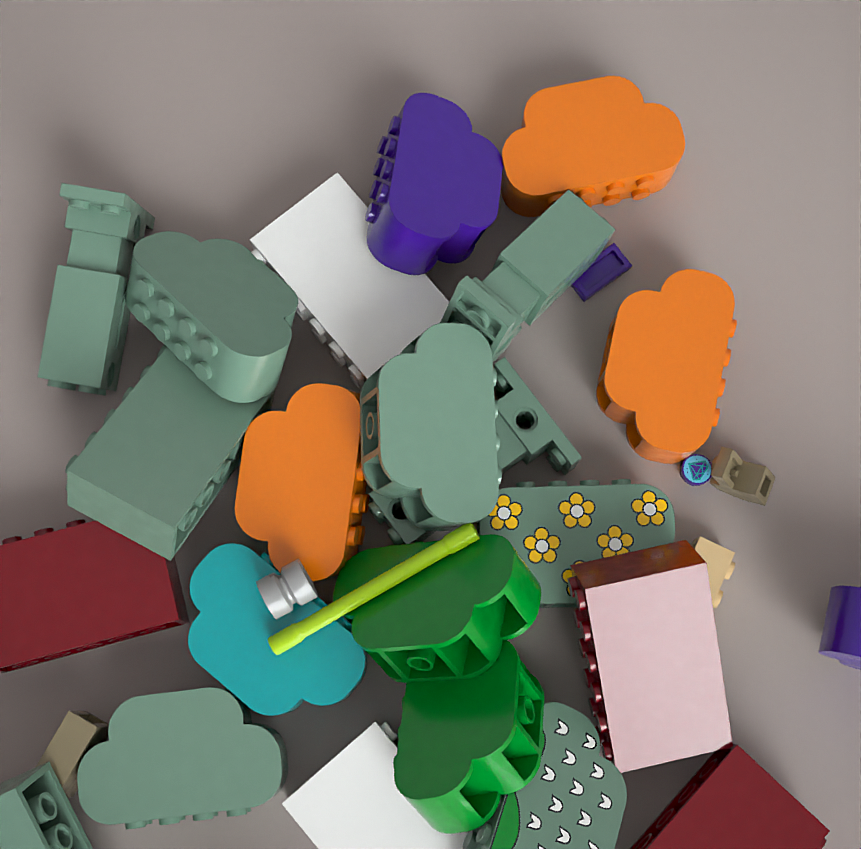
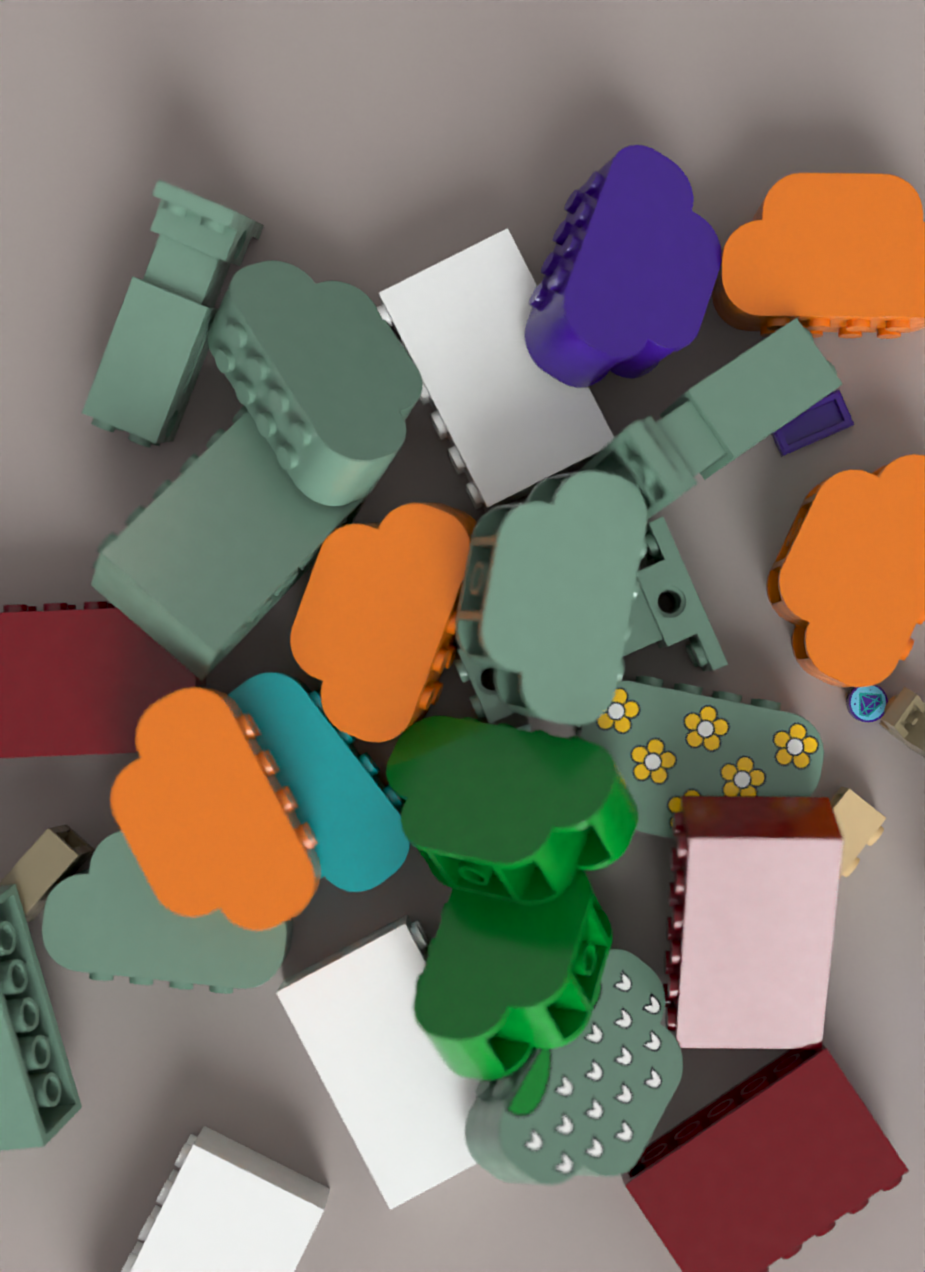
camera: 15 degrees right, 10 degrees up
(198, 663) = (213, 815): none -> orange brick
(286, 589) = (334, 747): light grey wheel -> none
(447, 545) = (541, 742): lime piece -> none

